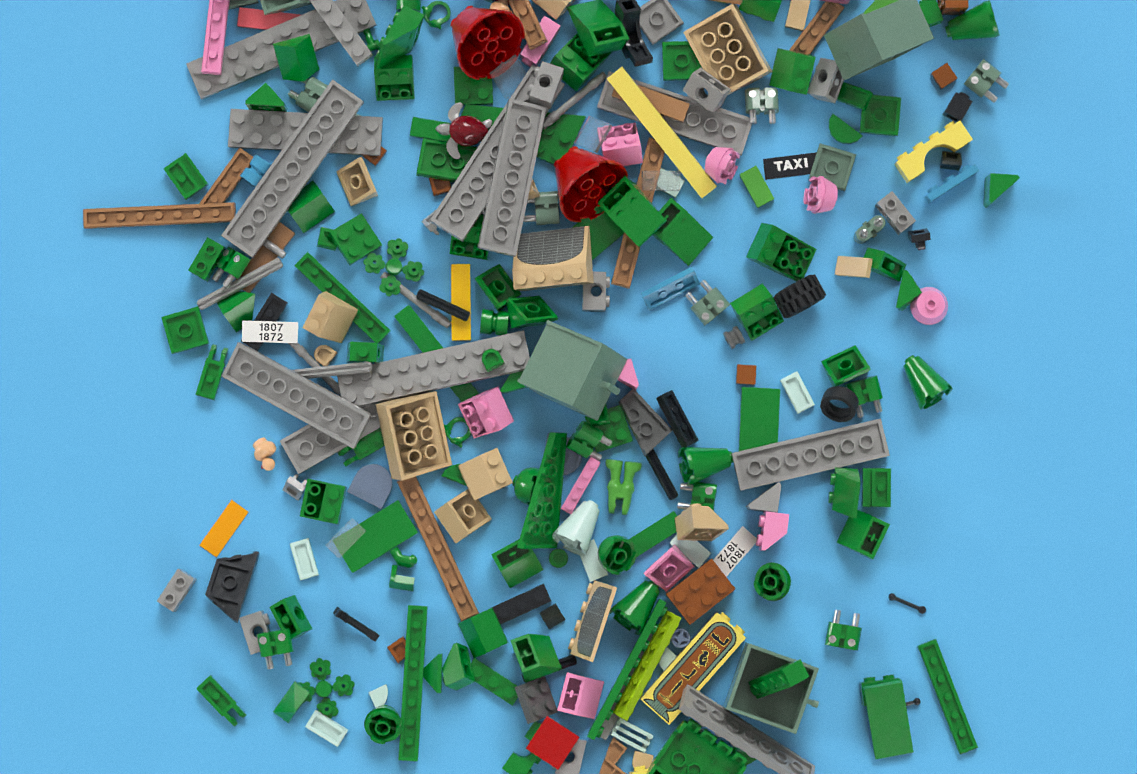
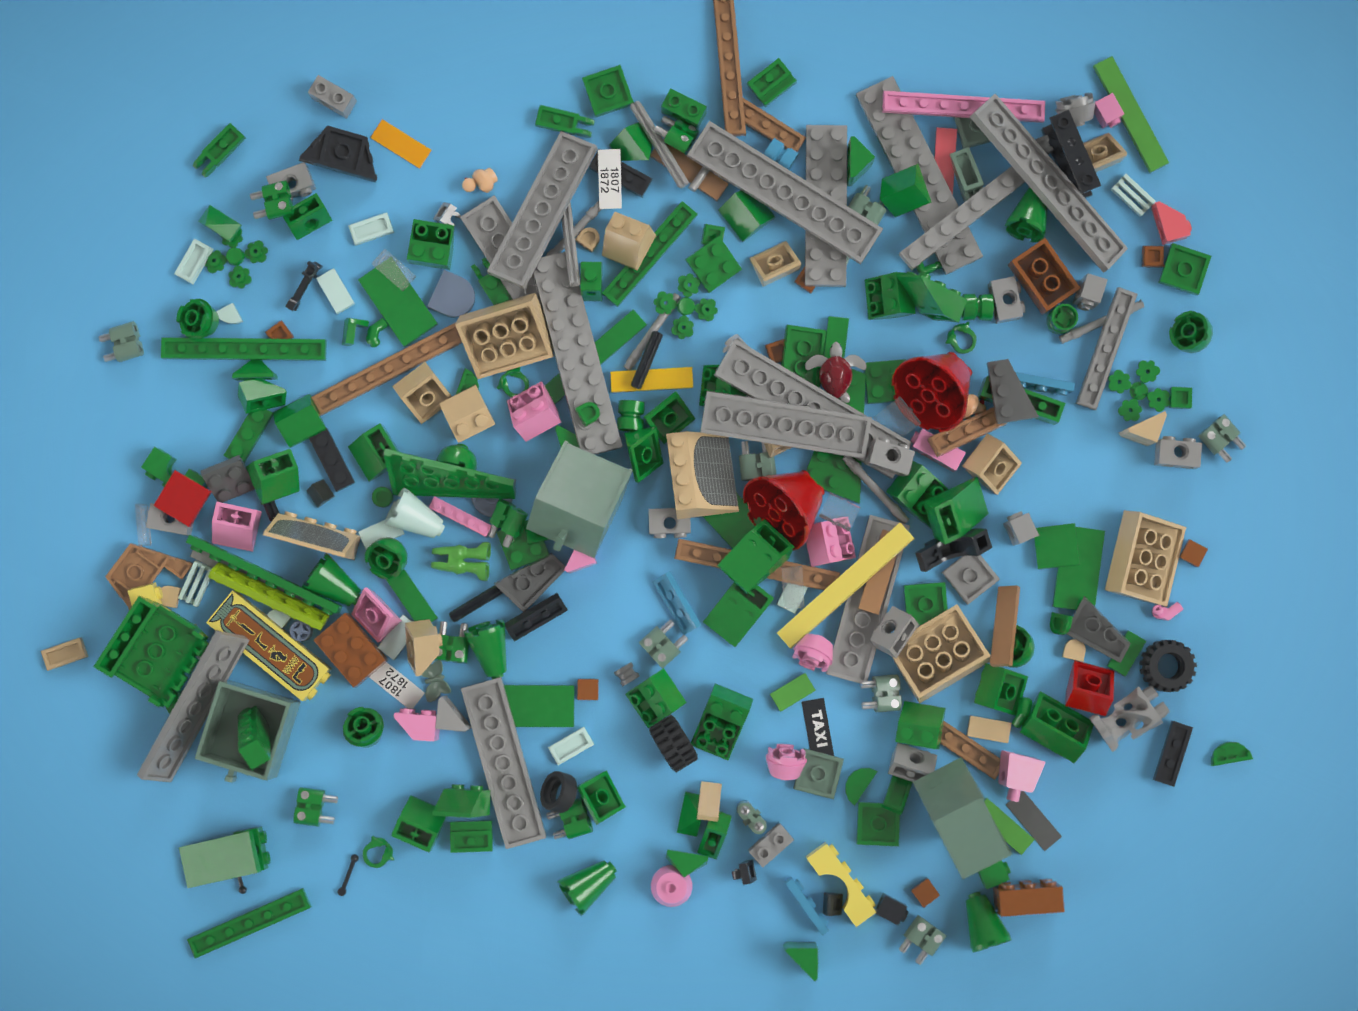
camera: 90 degrees right, 0 degrees up
(362, 595) = (335, 291): none -> light aqua tile
(734, 514) = (437, 684): none -> sand green piece
(868, 287) = (688, 820): none -> green slope
(891, 566) = (388, 853): none -> green piece

